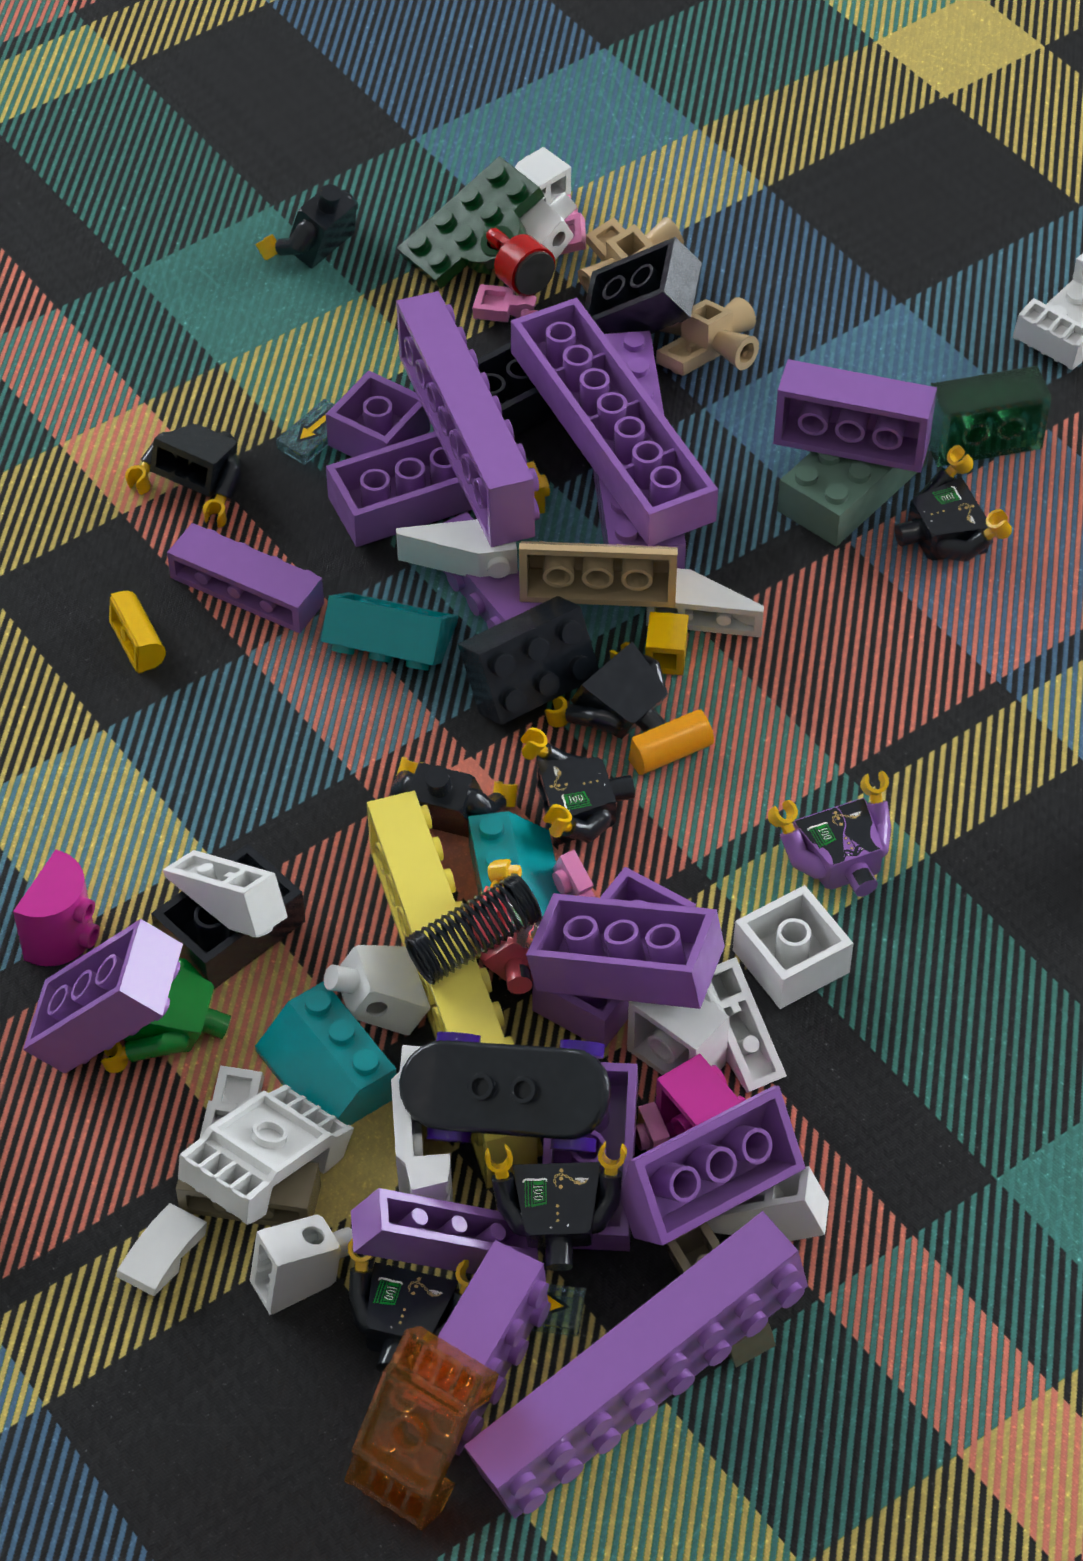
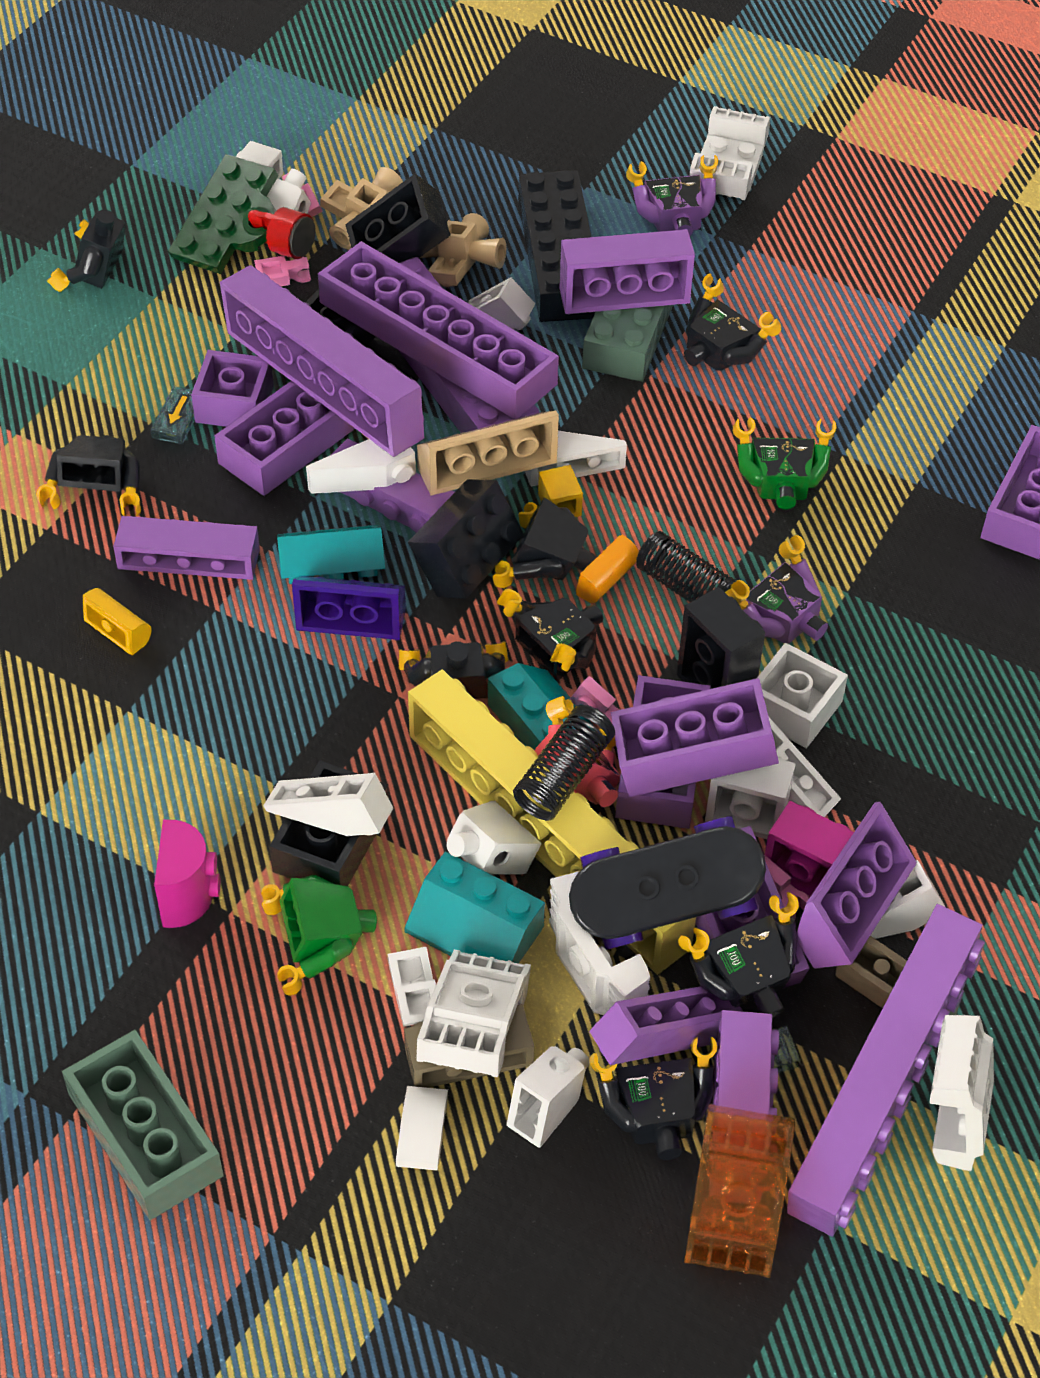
camera: 25 degrees left, 0 degrees up
(104, 996) = (273, 929): medium lavender brick -> none
(374, 693) = (349, 607): none -> dark purple slope
(713, 1409) = (962, 1090): none -> white plate
(716, 416) = (506, 304): none -> white slope
(726, 862) = (719, 642): none -> black brick
(735, 751) = (666, 544): none -> black piece
(830, 331) = (551, 212): none -> black brick
(932, 691) = (783, 466): none -> torso
(985, 345) = (675, 201): none -> torso
(990, 414) = (722, 242): clear green brick -> none

